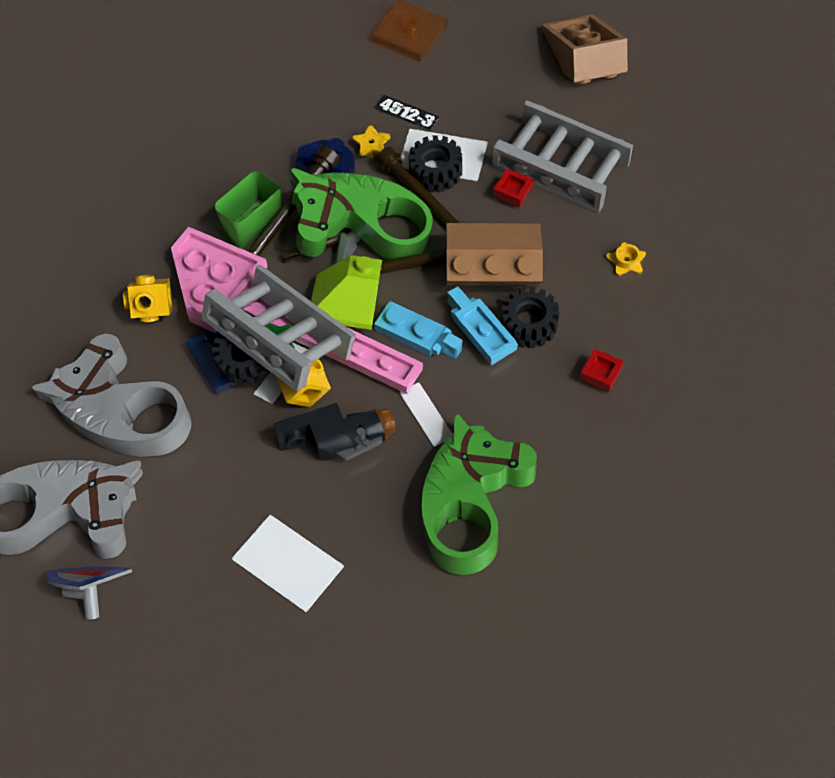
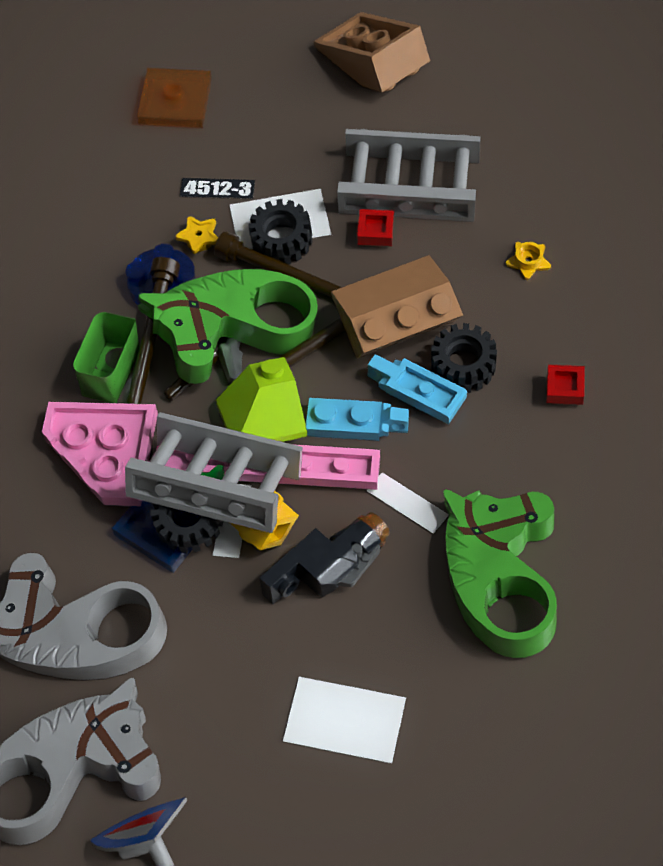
camera: 20 degrees left, 0 degrees up
(156, 290) = (60, 497): yellow brick -> none

